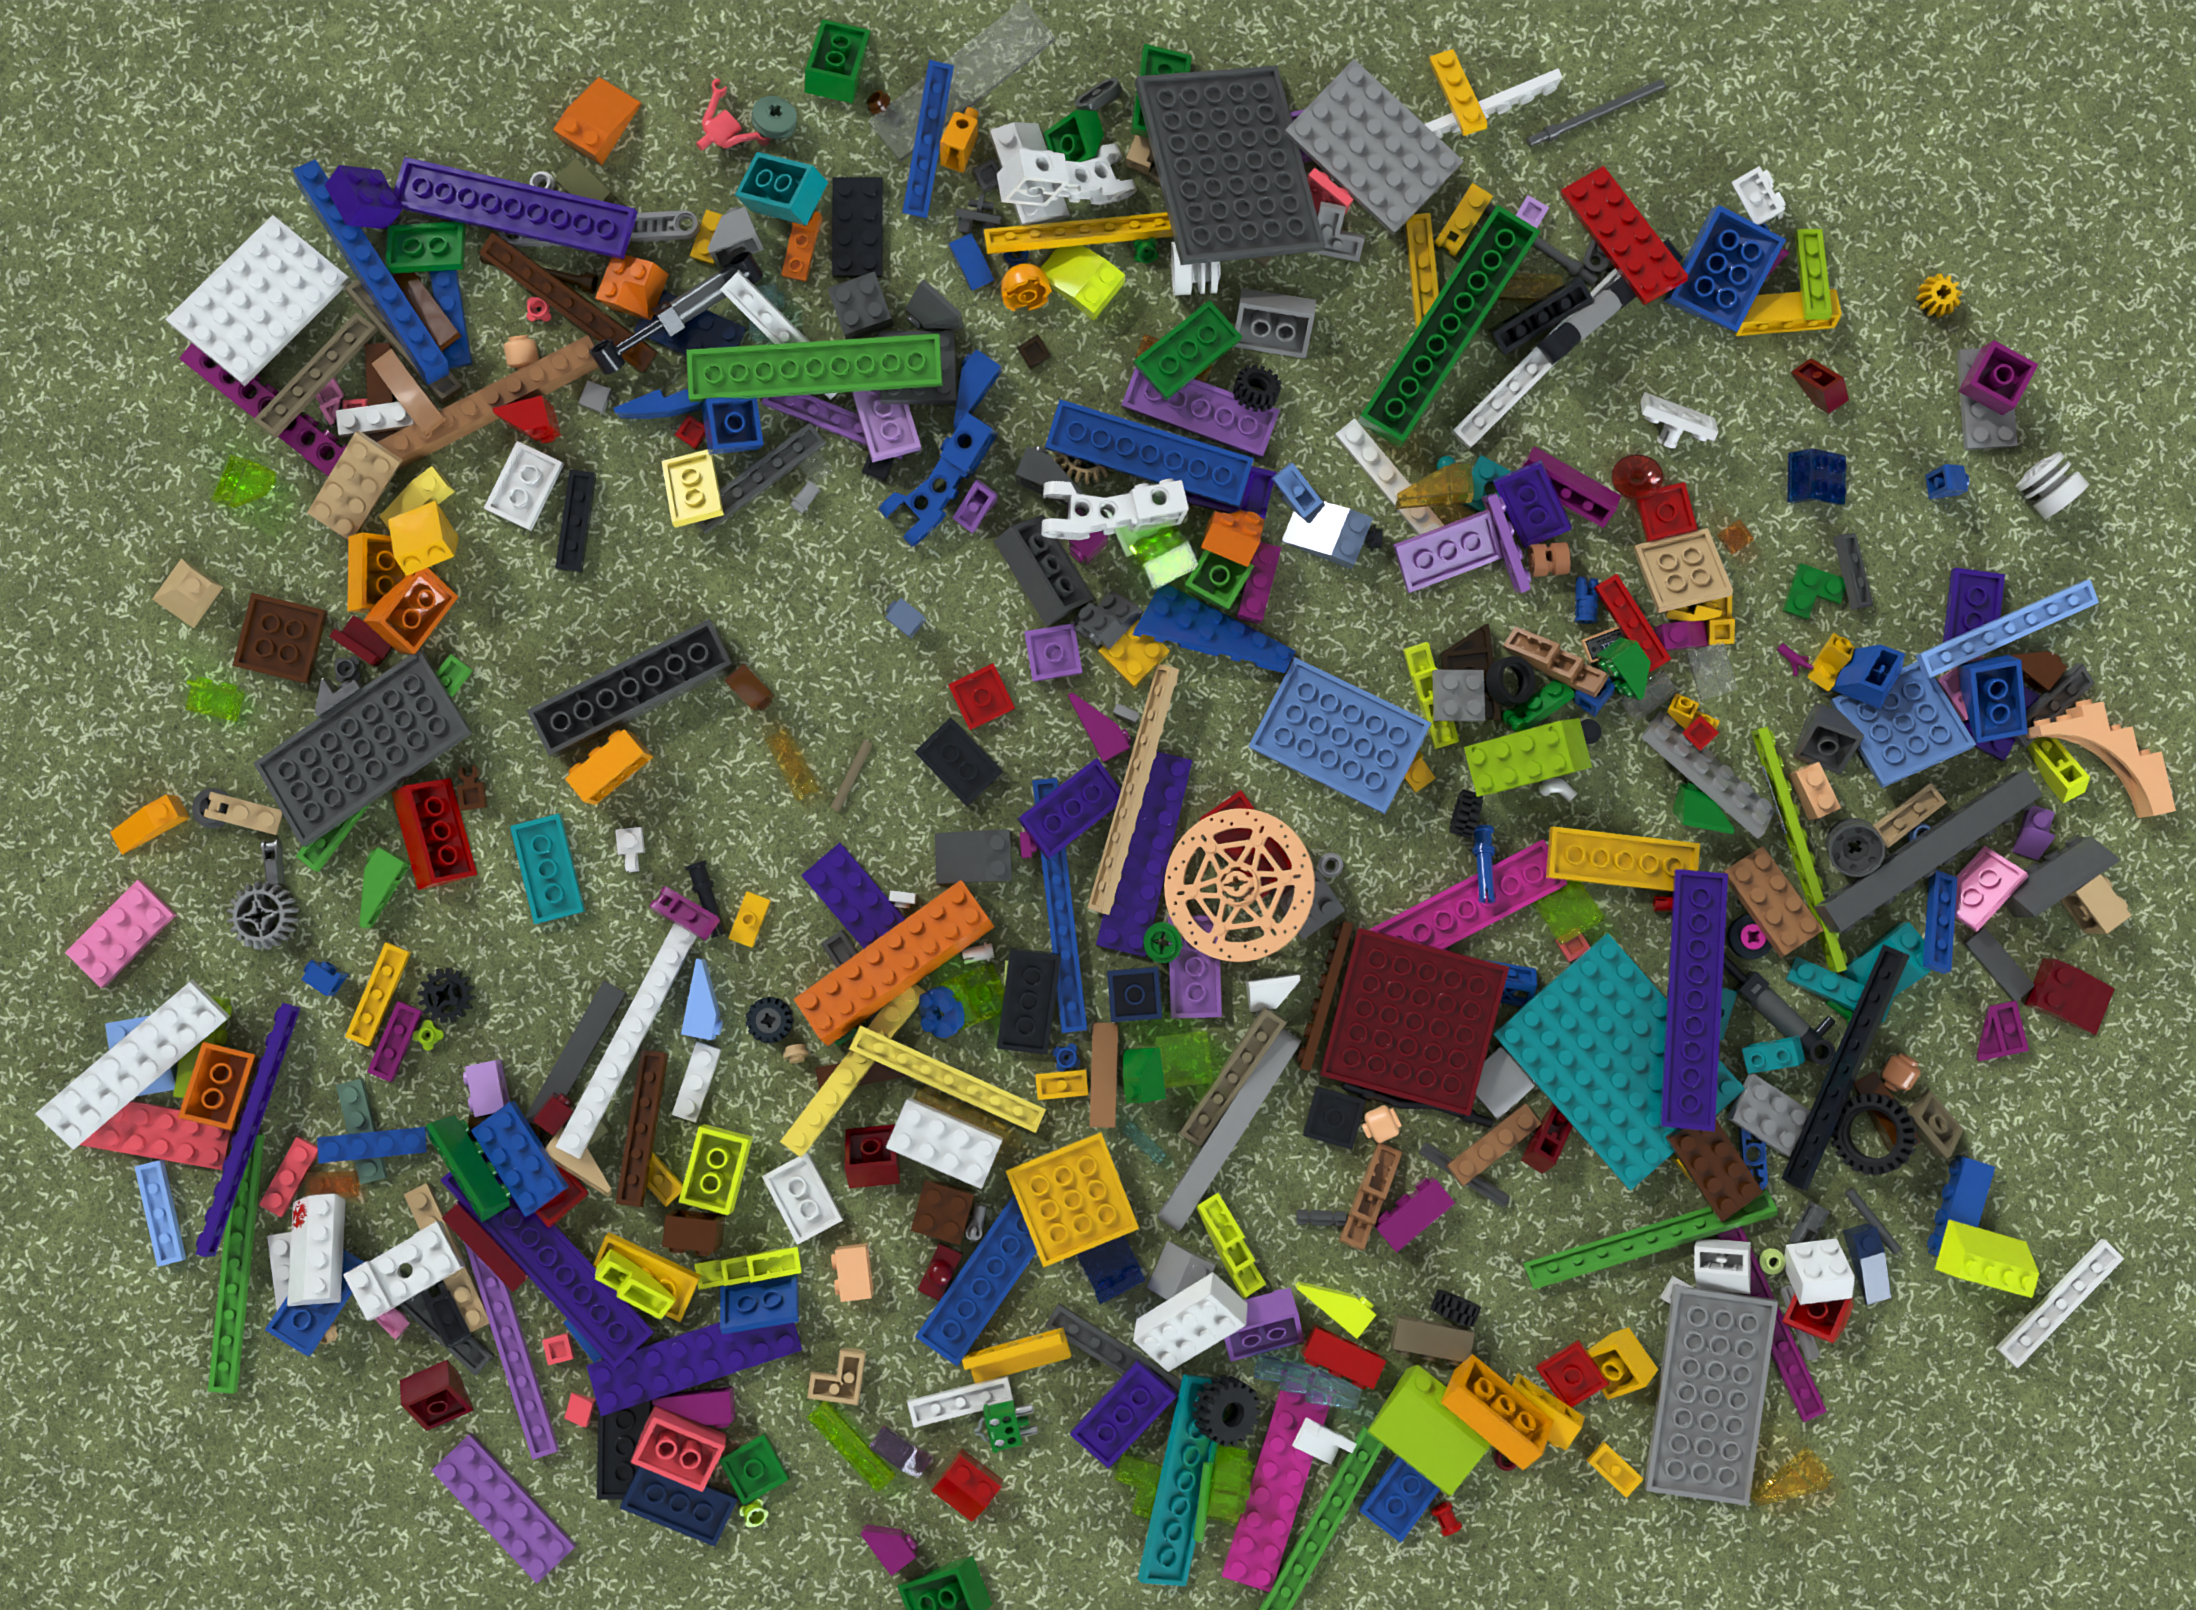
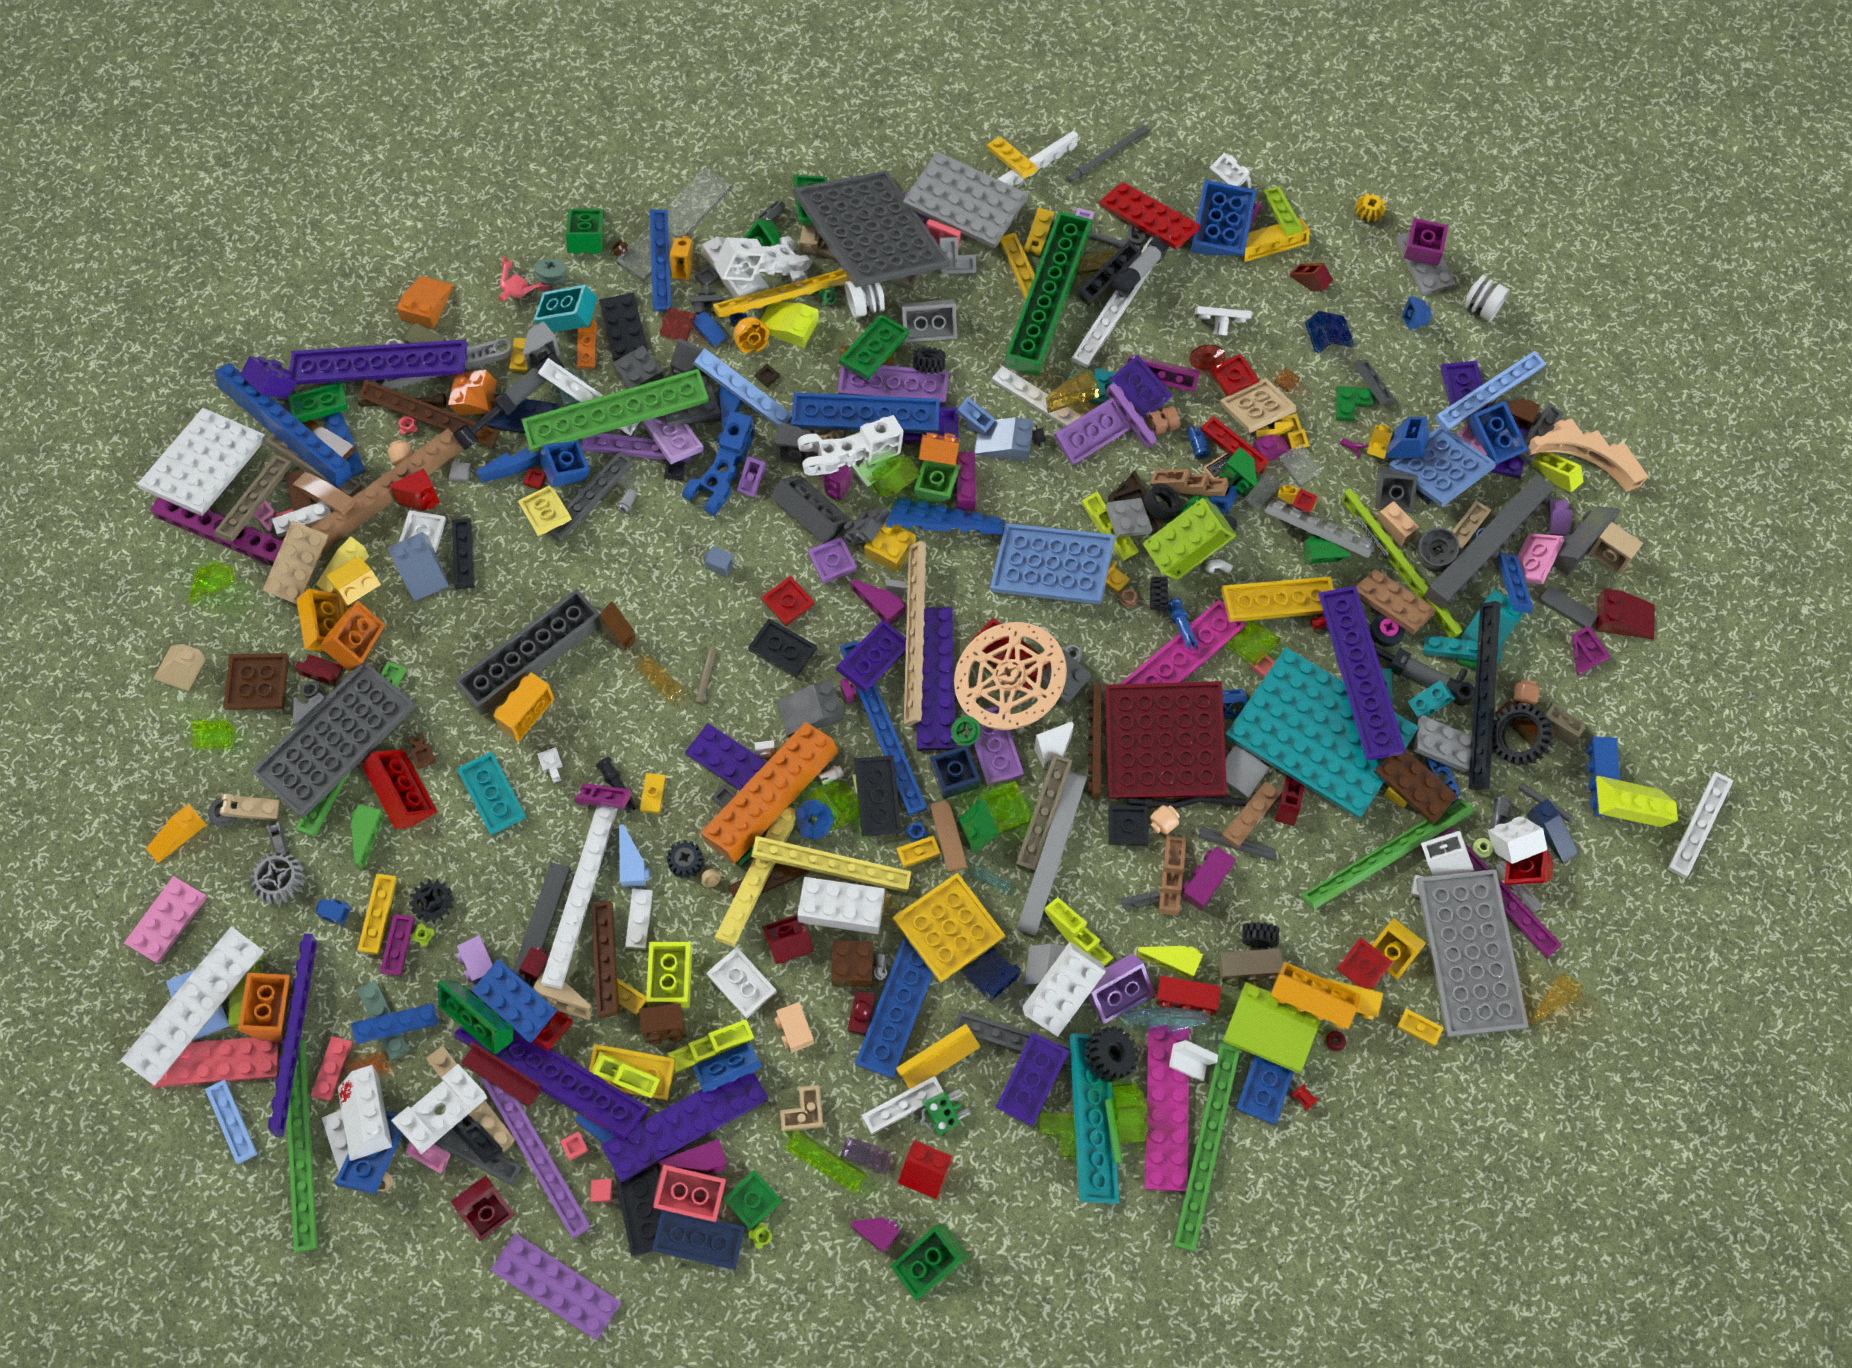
camera: 15 degrees left, 20 degrees down
(513, 530) = (418, 566): none -> sand blue slope
(930, 244) = (677, 324): none -> clear red piece
(992, 373) = (742, 388): none -> light blue plate
(1111, 209) = (797, 276): none -> white tile
(1426, 804) = (1128, 598): none -> medium nougat plate

